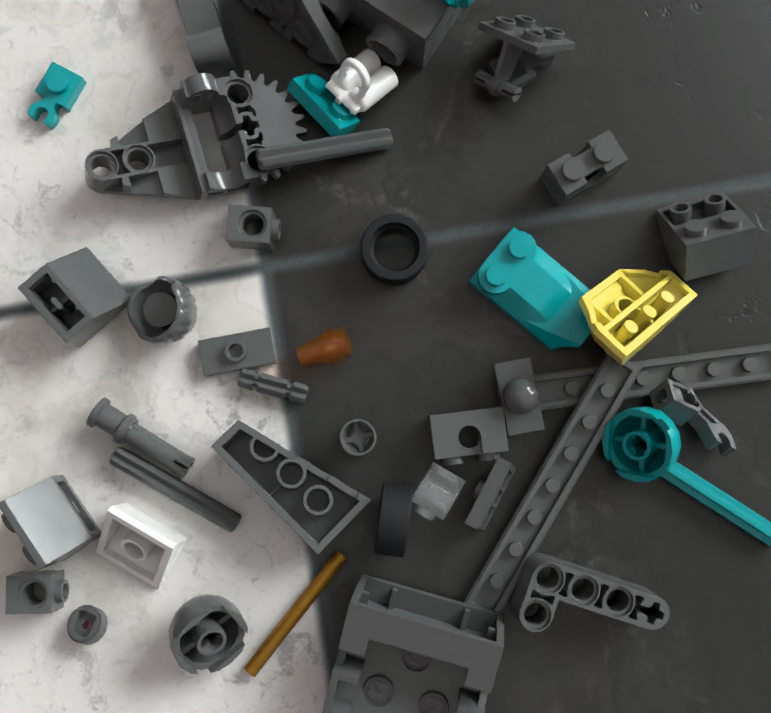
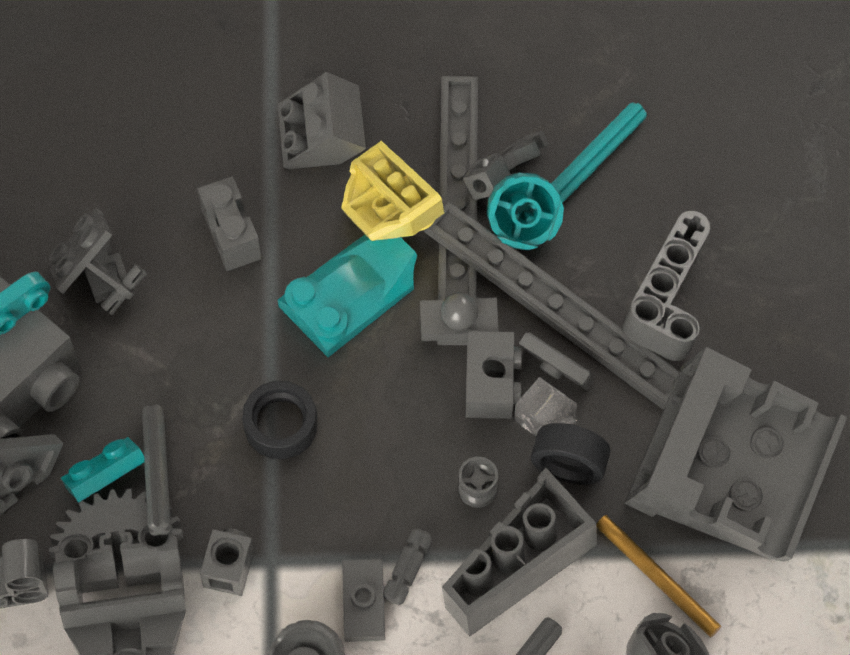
camera: 80 degrees left, 20 degrees down
(325, 348) = (375, 503): clear orange cone -> none
(361, 81) = (86, 424): white piece -> none

